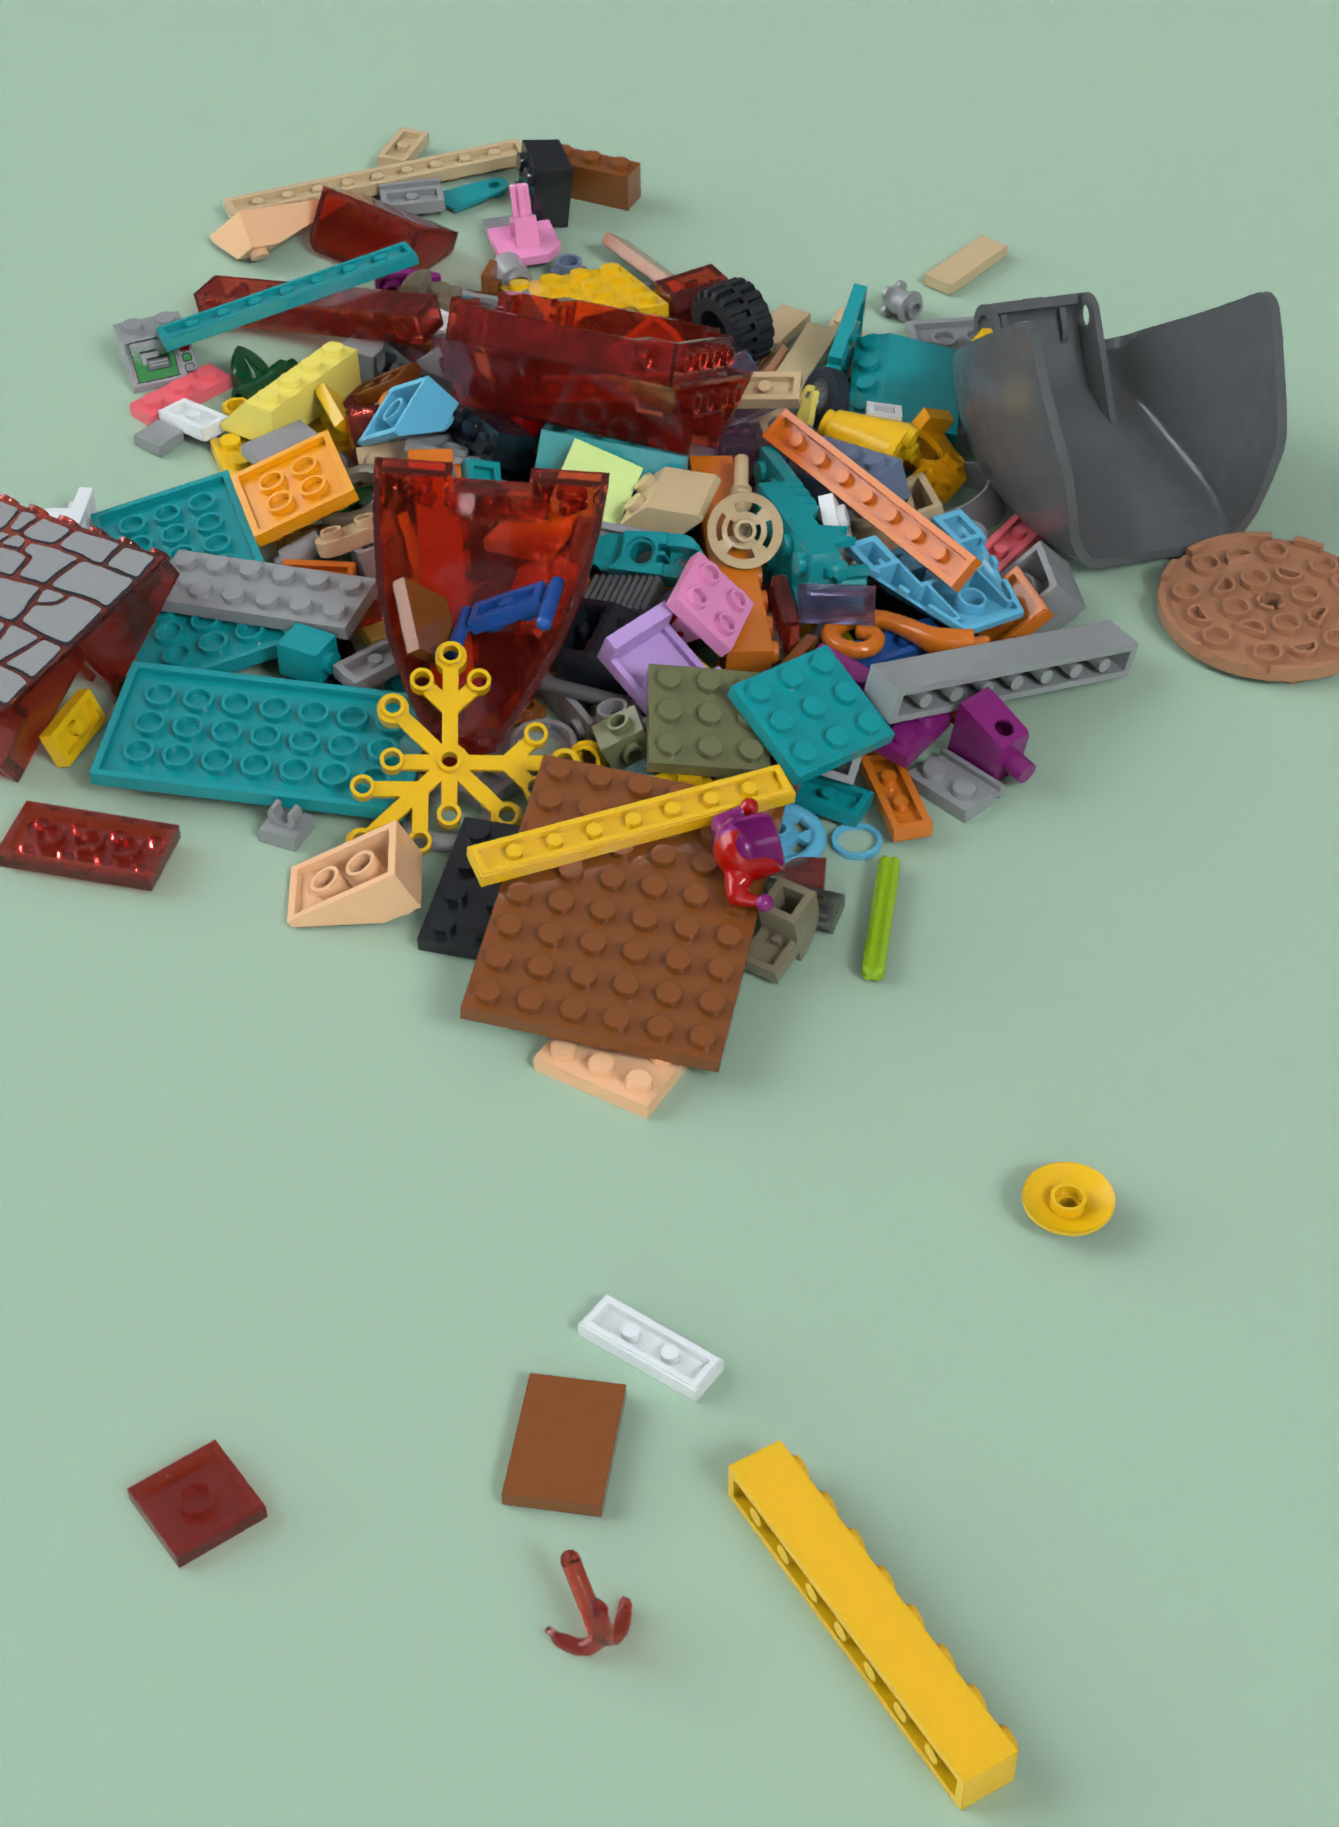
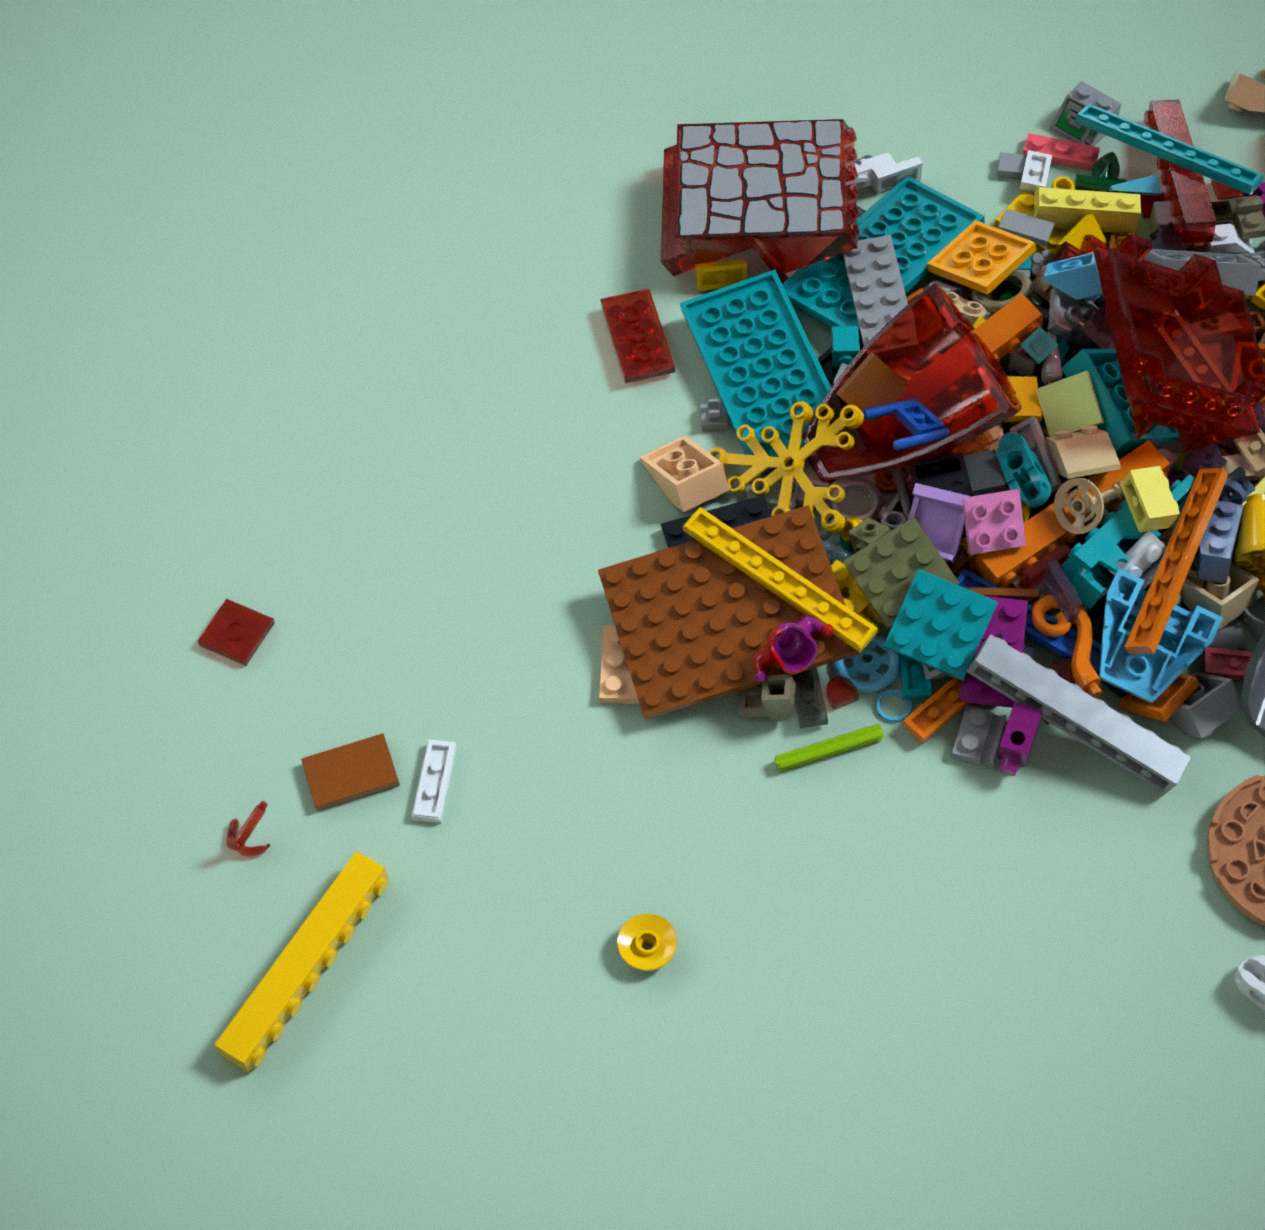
camera: 65 degrees right, 15 degrees up
(309, 343) = (1144, 186): none -> medium azure piece
(784, 471) = (1149, 499): none -> light yellow brick

